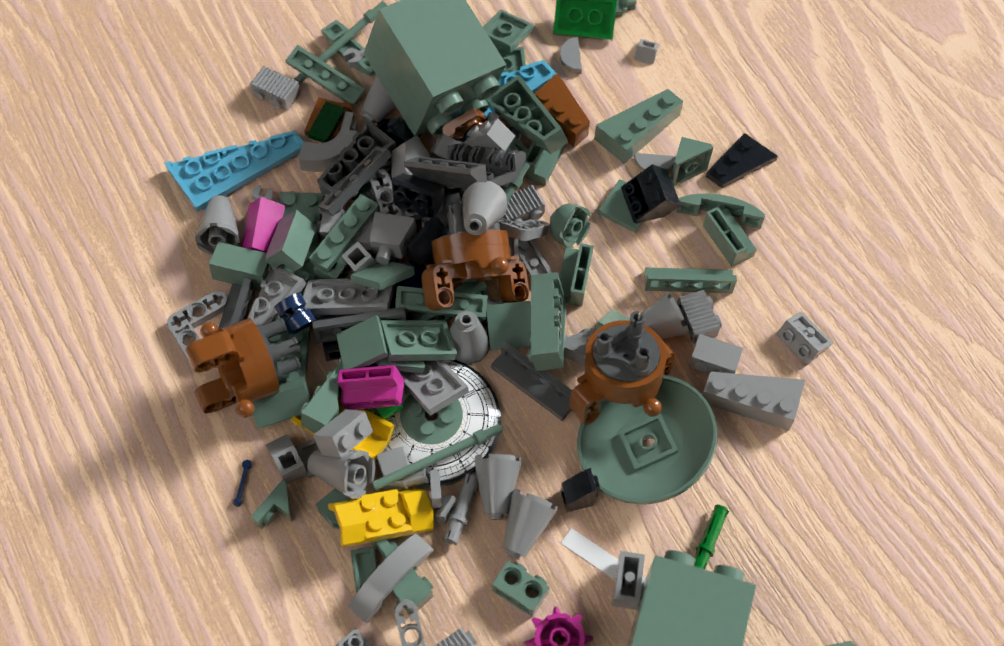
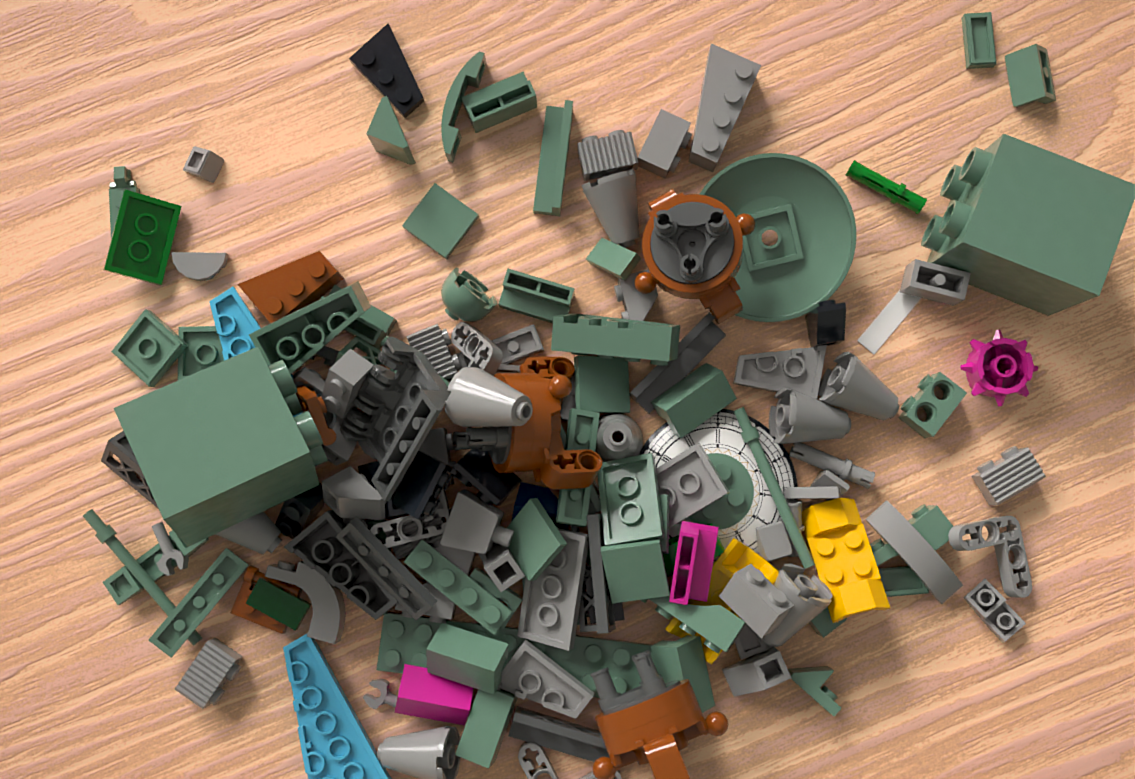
camera: 80 degrees left, 20 degrees up
(246, 465) = (754, 720): dark blue hinge -> none
(301, 319) = (585, 654): dark blue wheel -> none
(504, 393) = (694, 399): none -> sand green piece
(537, 469) = (791, 369): none -> light grey wing
(638, 125) = (329, 196): sand green wedge -> none
(645, 160) = (382, 178): light grey tile -> none
(650, 194) = (436, 188): black slope -> none
(803, 337) = (645, 37): light grey bracket -> none
(860, 615) = (978, 40): none -> sand green tile

